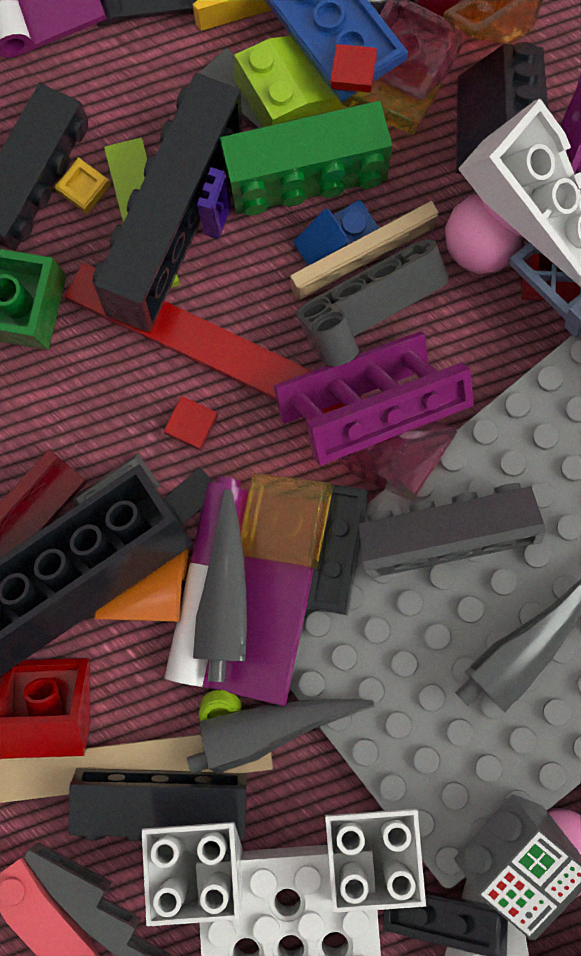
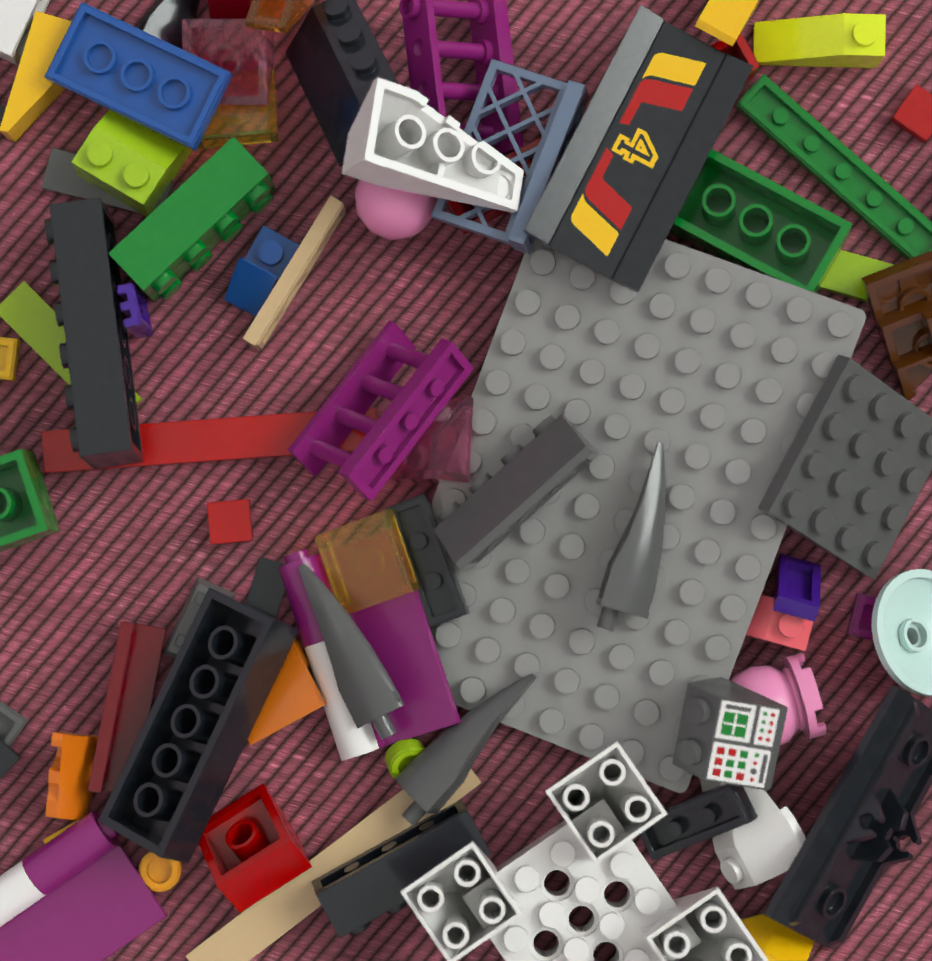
camera: 35 degrees left, 5 degrees up
(353, 68) = (191, 118): red tile -> none
(370, 298) = (325, 317): dark grey beam -> none

